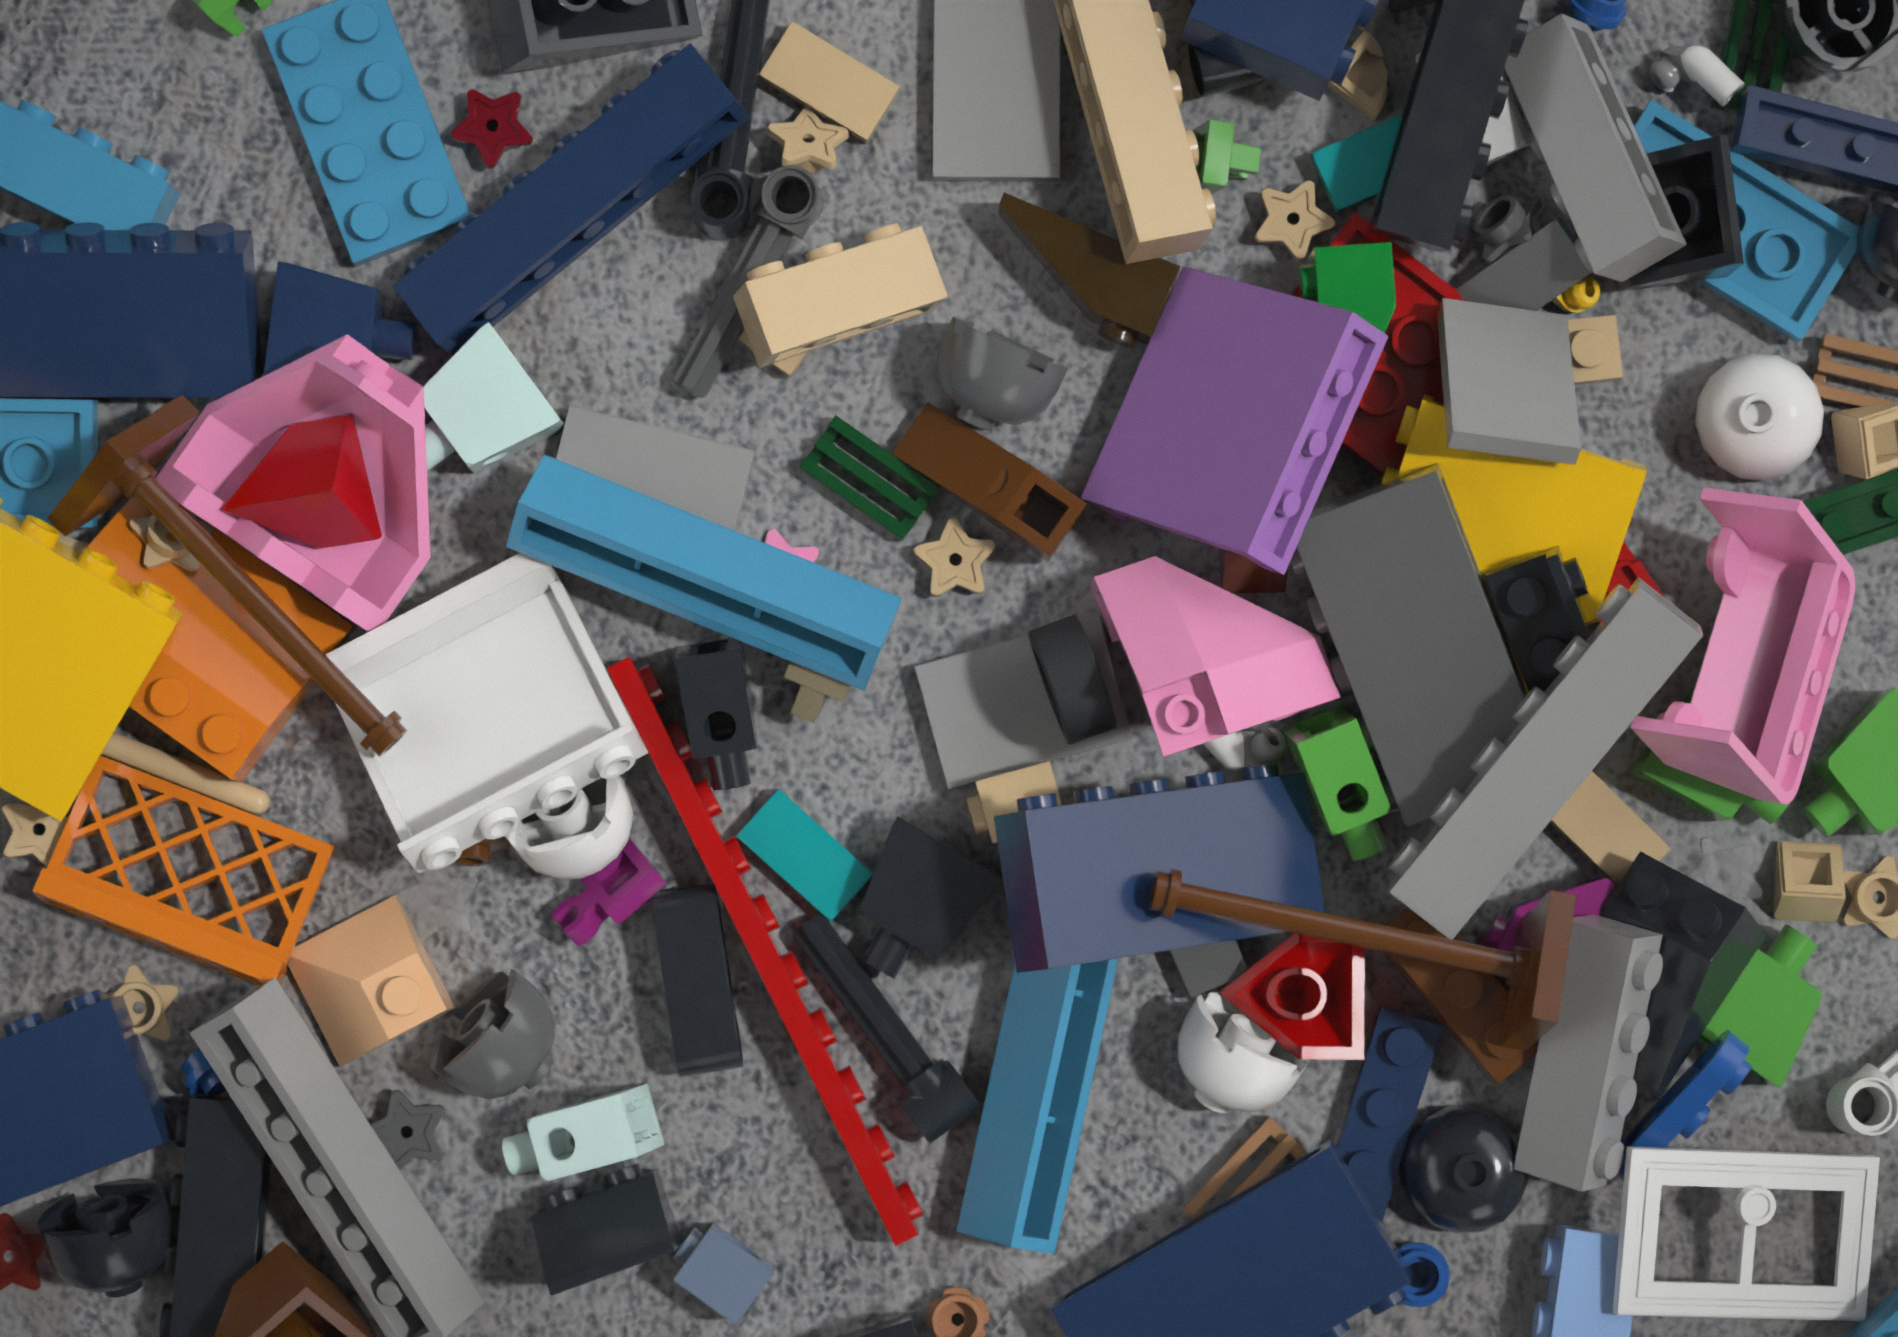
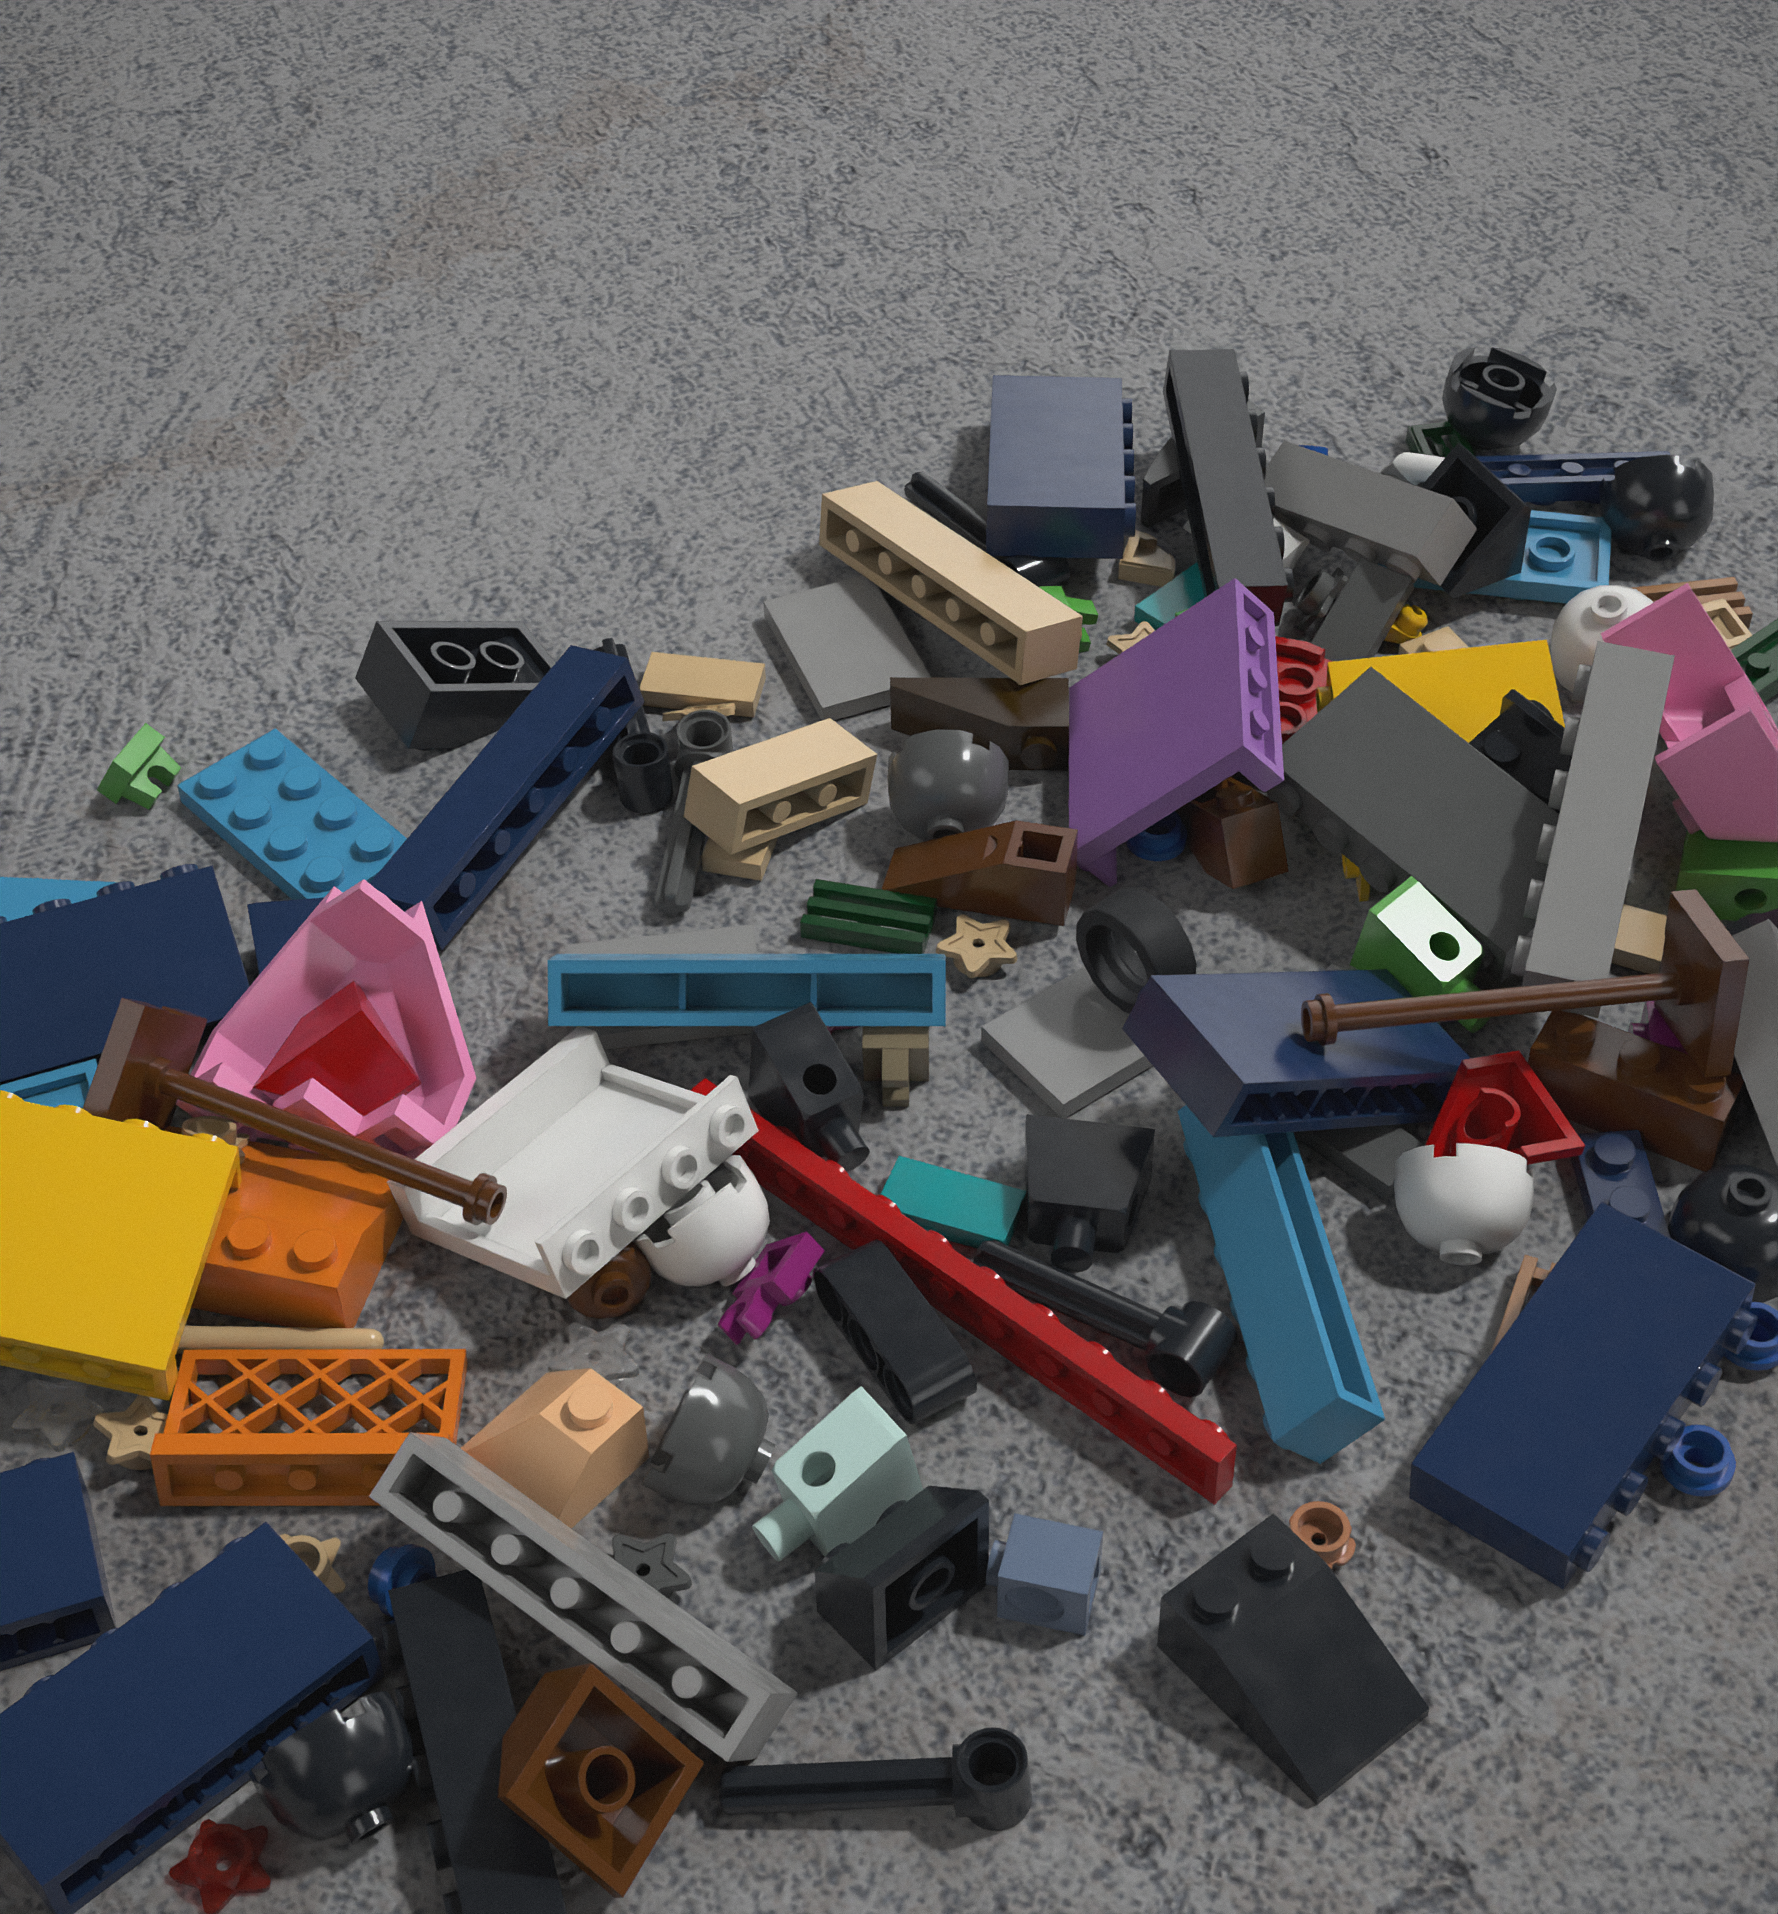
camera: 15 degrees left, 40 degrees down
(484, 405) = (493, 959): light aqua torso -> none
(492, 143) = (412, 791): dark red plate -> none
(999, 794) = (1129, 1091): tan brick -> none
(1208, 655) = (1257, 889): bright pink panel -> none
(1508, 381) = (1393, 641): light grey tile -> none

